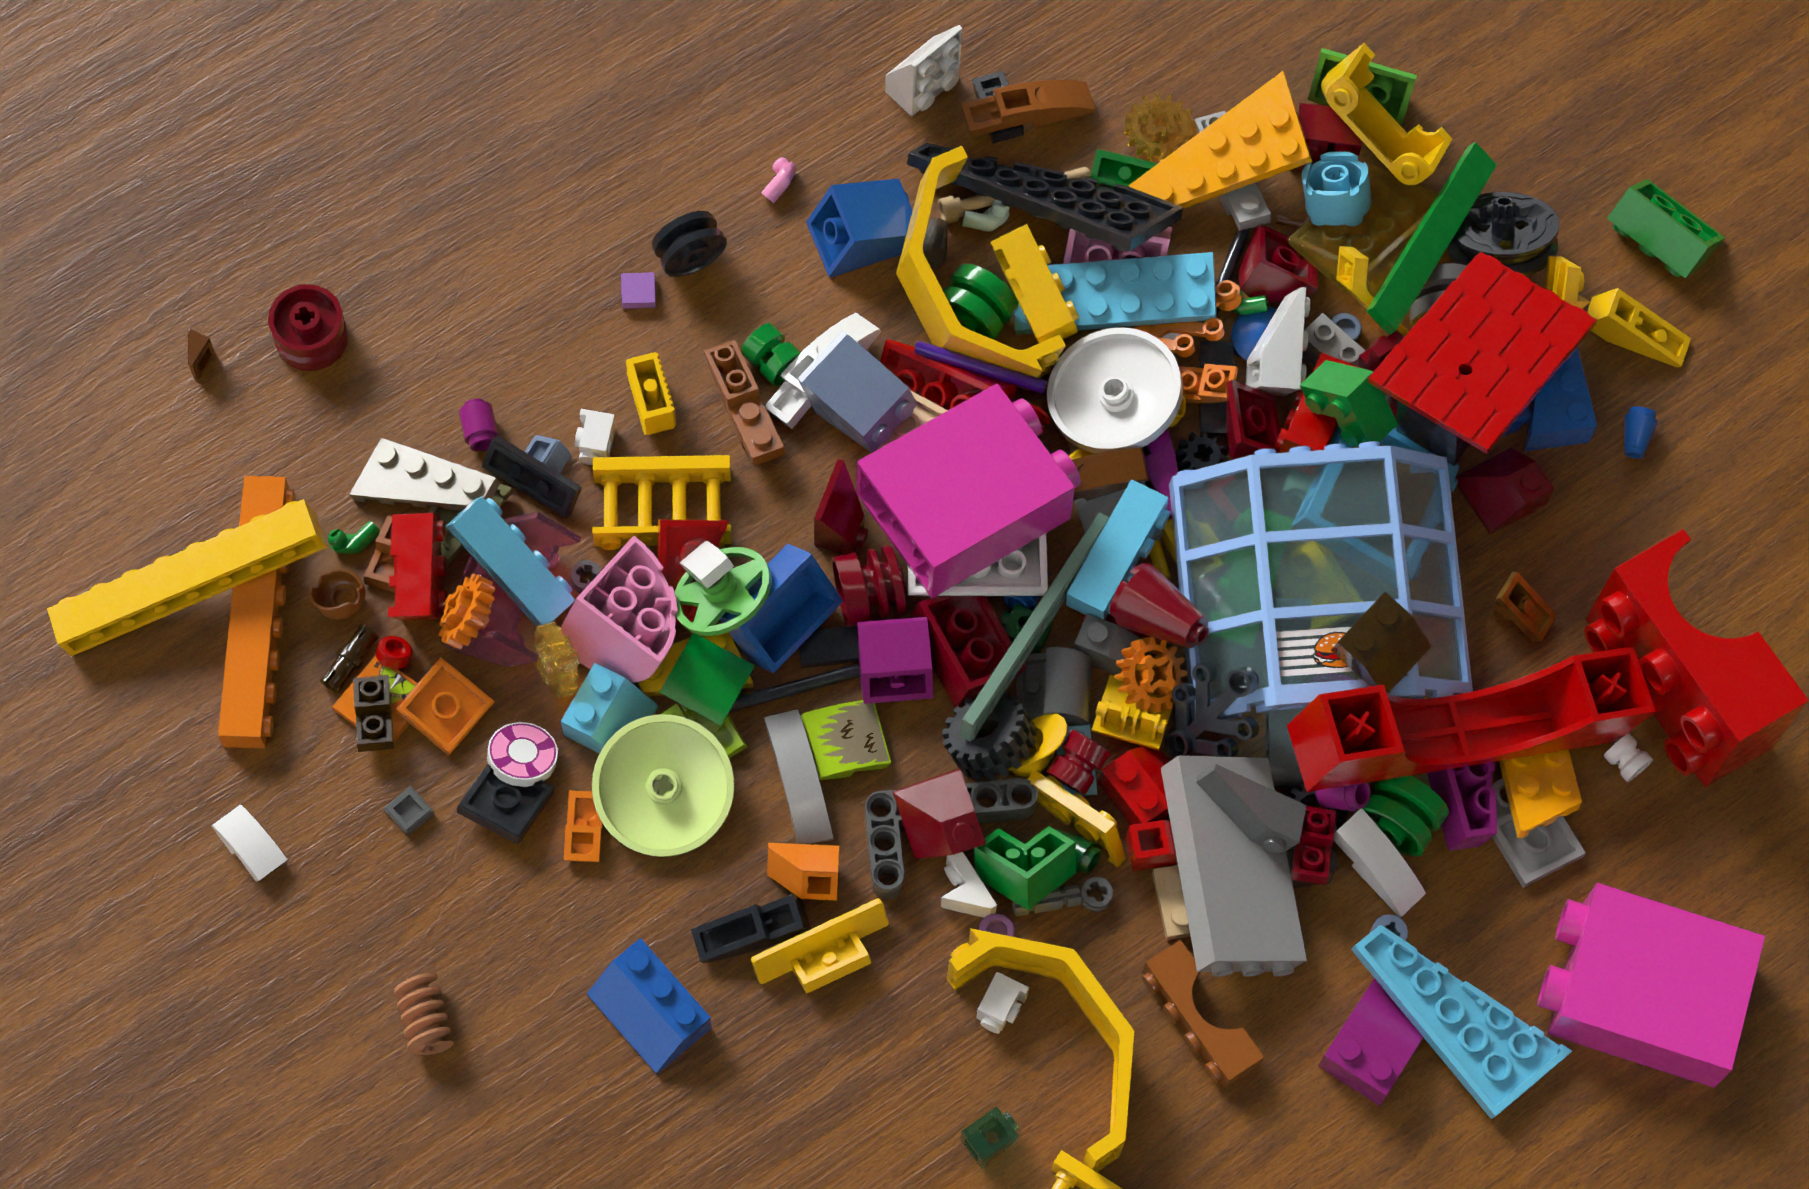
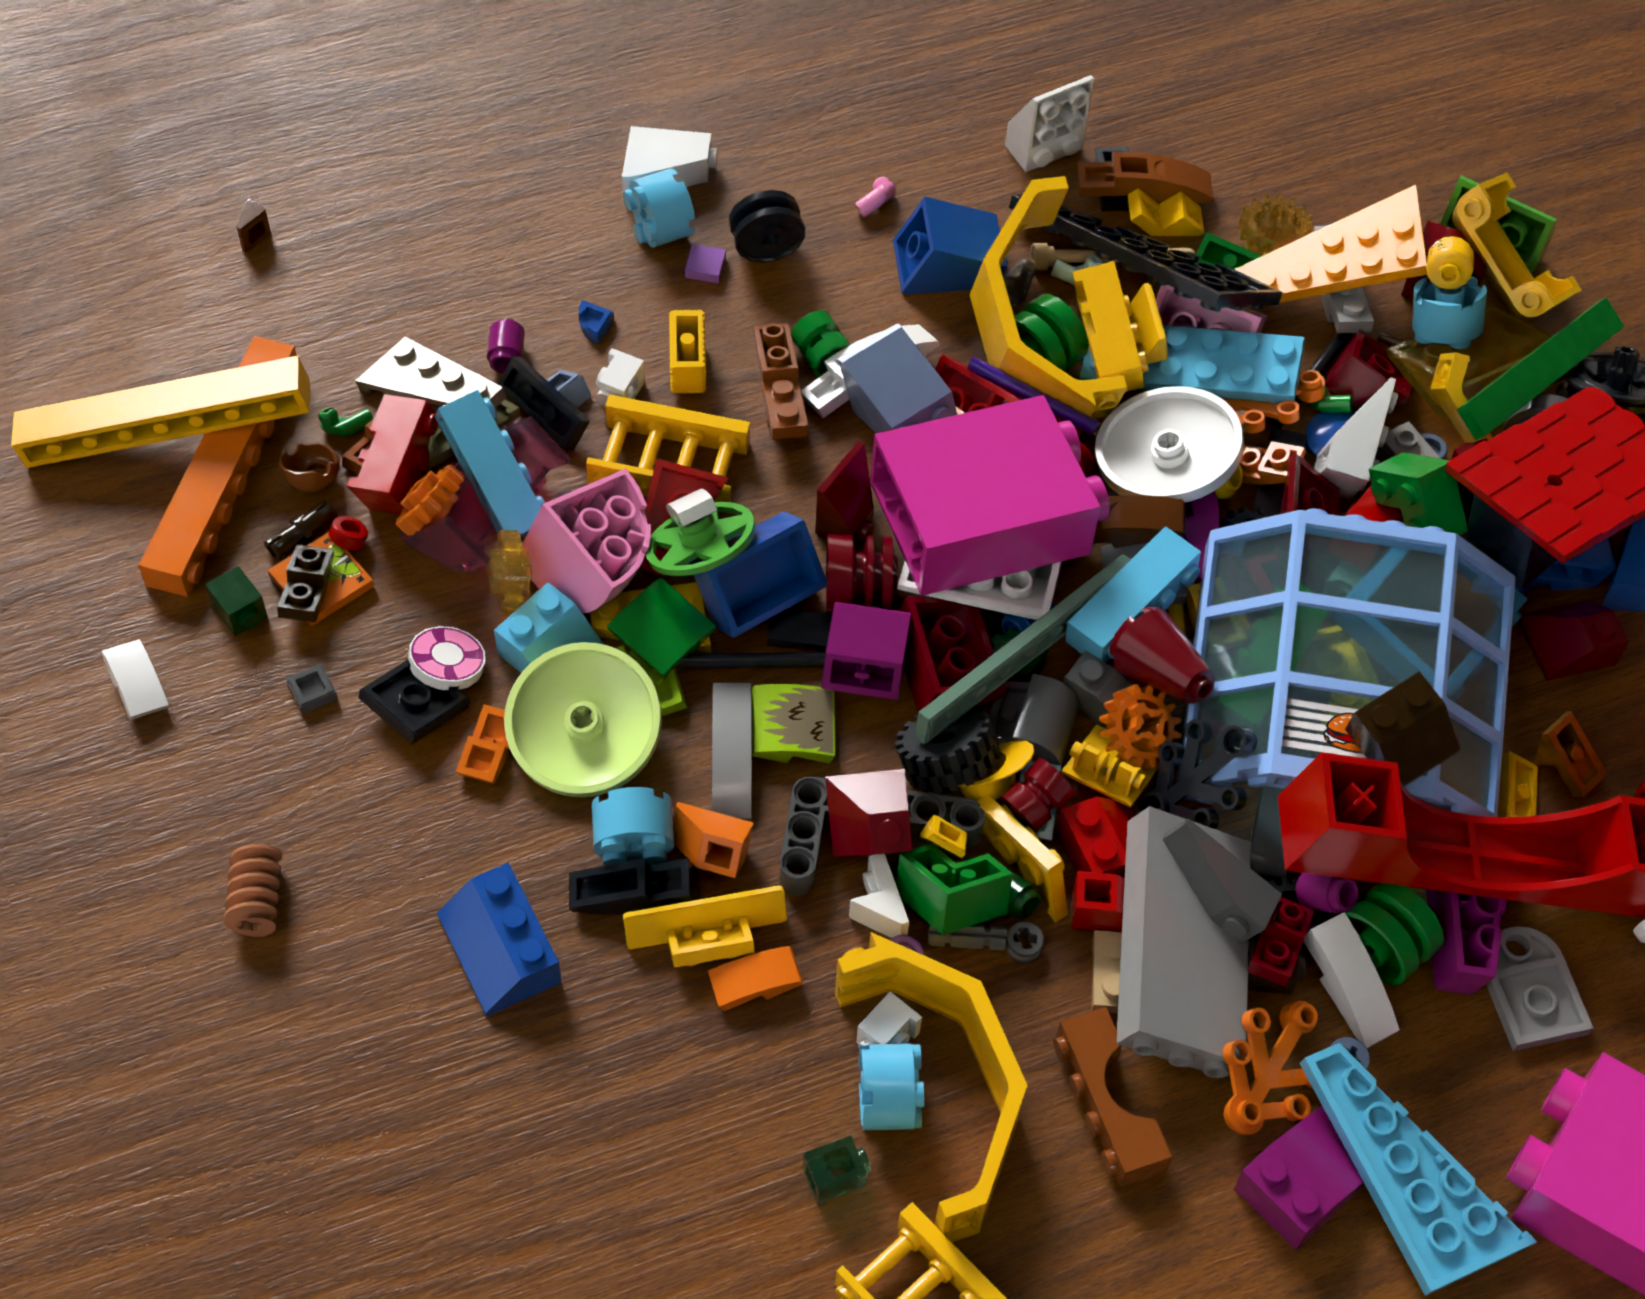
camera: 15 degrees right, 10 degrees down
(308, 327) = (366, 223): dark red wheel -> none
(316, 745) = (236, 600): none -> dark green brick
(444, 706) = (382, 595): orange tile -> none
(551, 376) = (594, 320): none -> blue tile
(570, 189) = (662, 149): none -> white slope
(583, 247) = (660, 208): none -> medium azure brick
(736, 876) = (632, 826): none -> medium azure brick
(877, 983) = (755, 975): none -> orange slope
(1008, 820) = (945, 836): none -> yellow slope
(1017, 1055) = (890, 1087): none -> medium azure brick
(1057, 138) = (1170, 218): none -> yellow slope
(1068, 270) = (1149, 325): none -> yellow slope
(1325, 959) = (1267, 1069): none -> orange plant
(1330, 149) = (1450, 263): none -> yellow head
(1484, 652) = (1517, 787): none -> yellow slope
(1540, 789) = (1553, 944): light orange wing -> none

